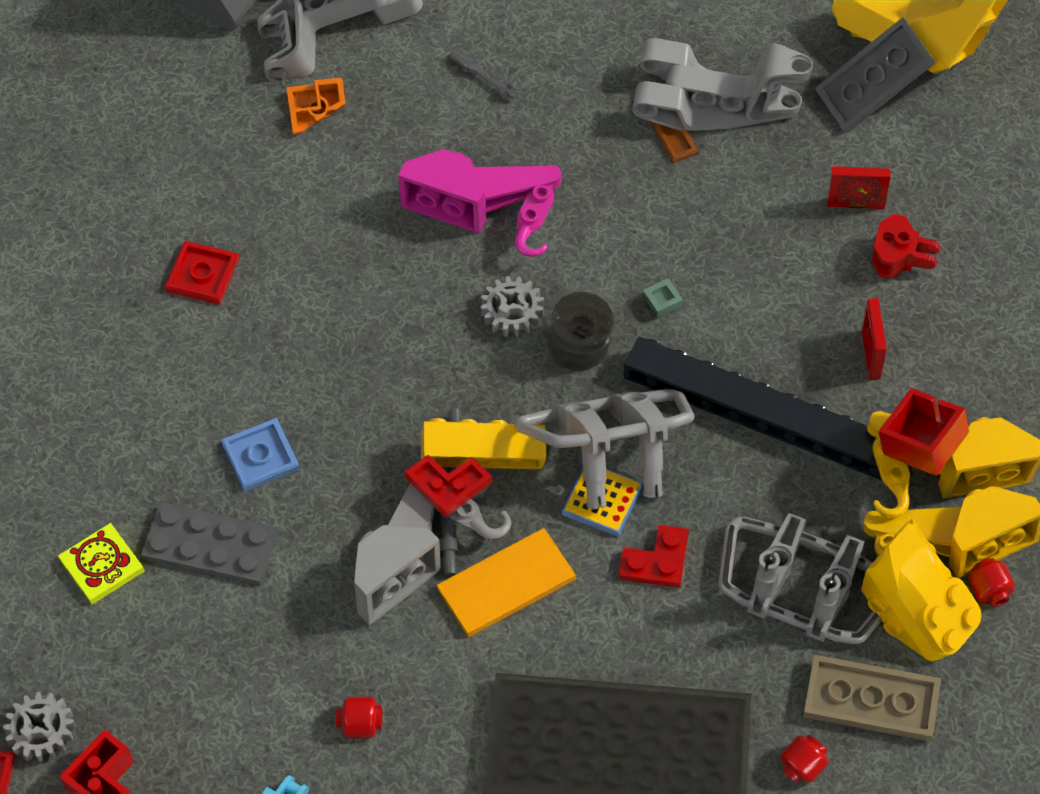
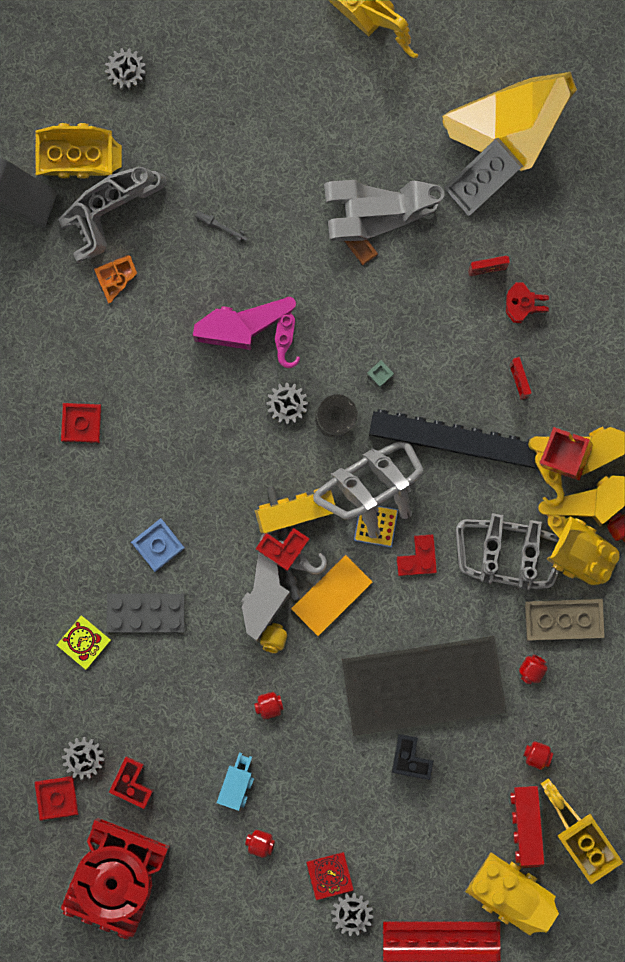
camera: 15 degrees left, 25 degrees up
(396, 619) = (273, 638): none -> yellow head

